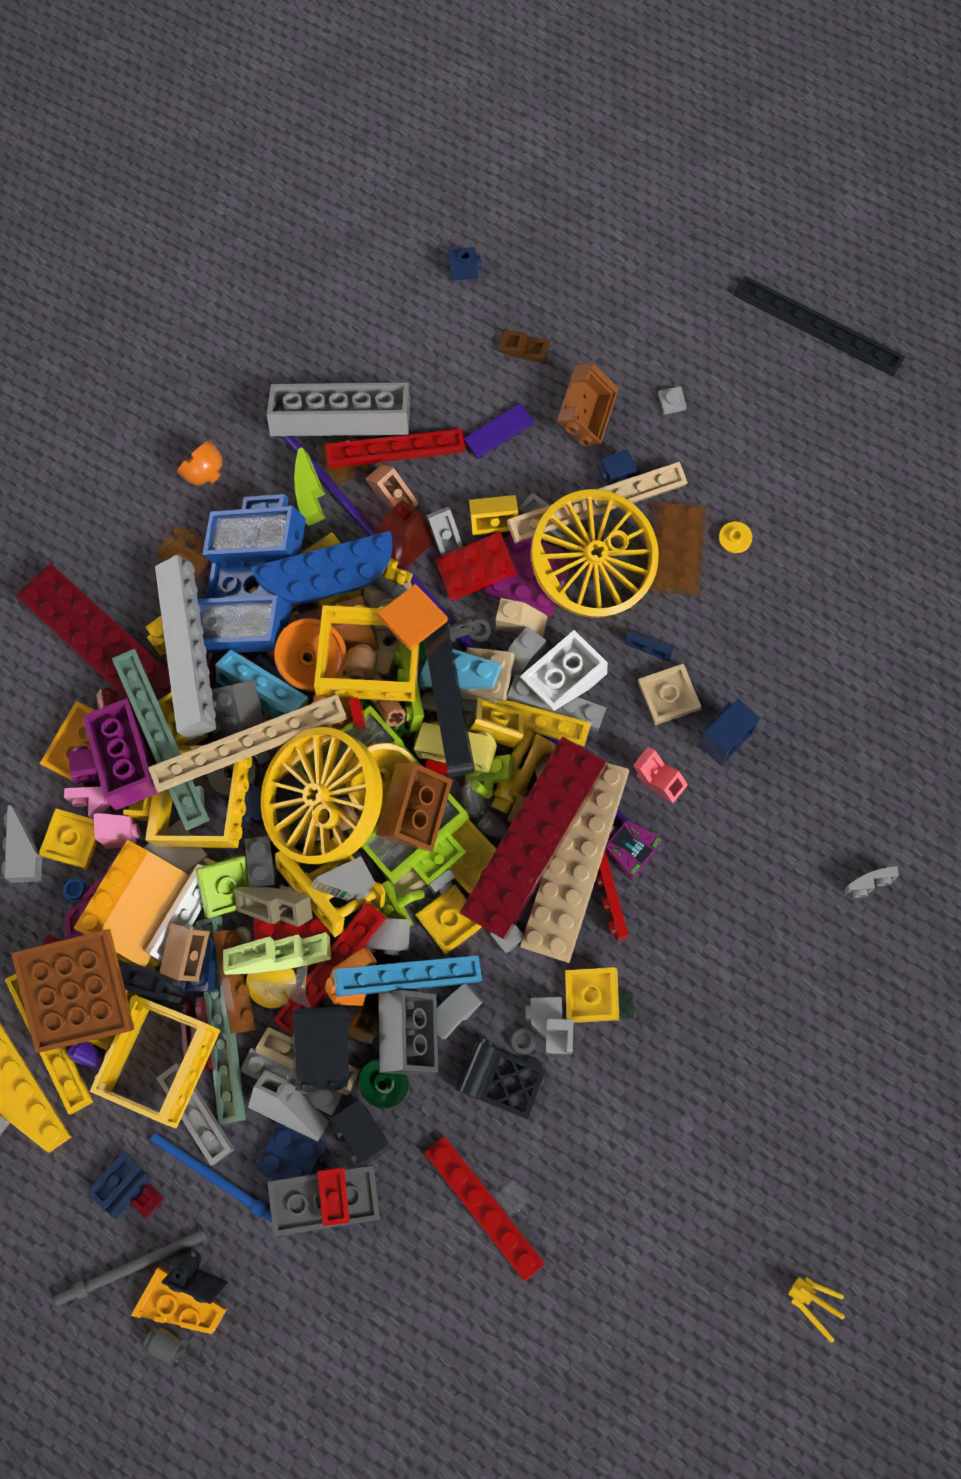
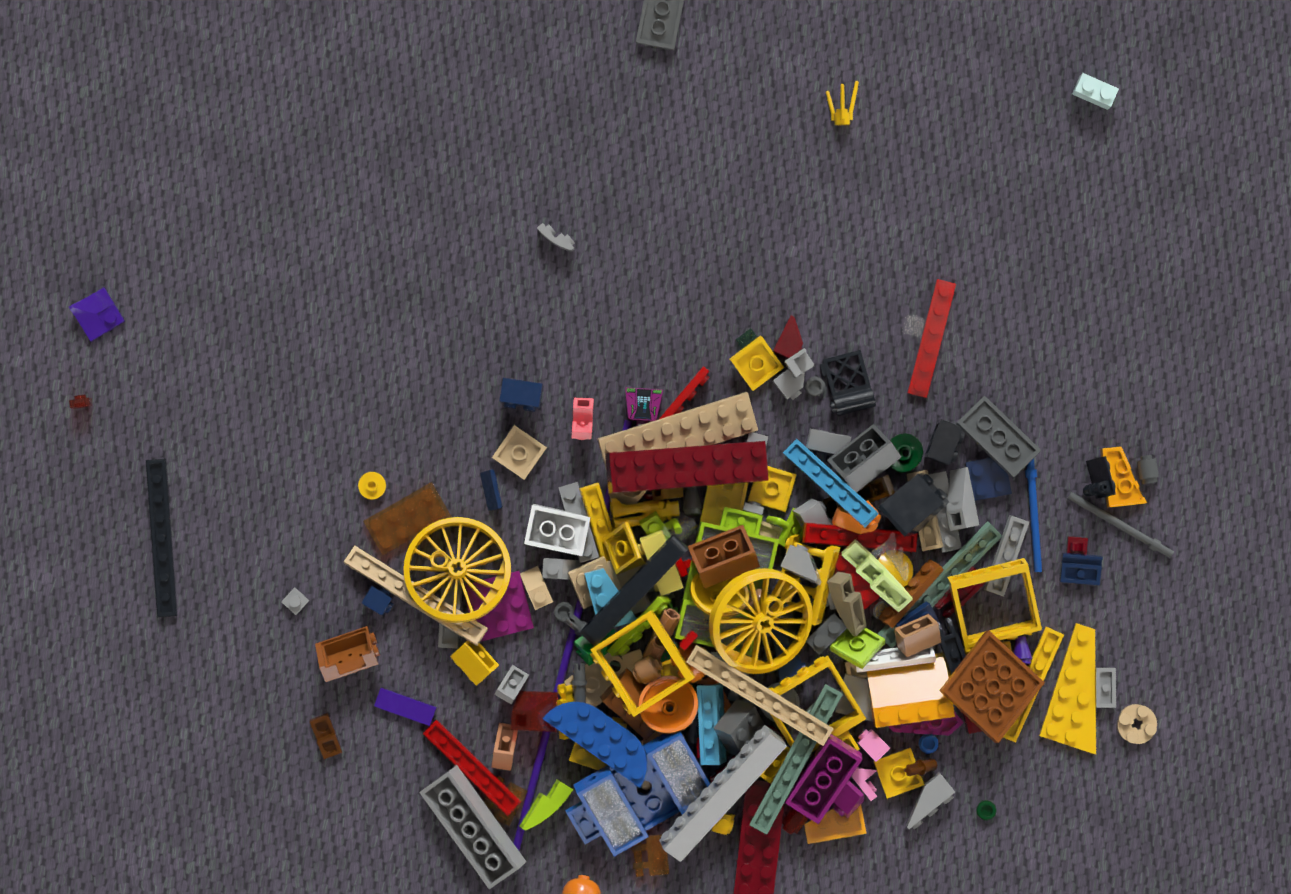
camera: 135 degrees left, 15 degrees up
(56, 861) = (921, 767): none -> reddish brown axle
(333, 1196) = (993, 431): red plate -> none
(412, 617) = (600, 650): orange tile -> none
(464, 263) = (290, 827): dark blue brick -> none
(476, 566) = (520, 646): red plate -> none
(591, 1048) = (790, 340): none -> dark red slope

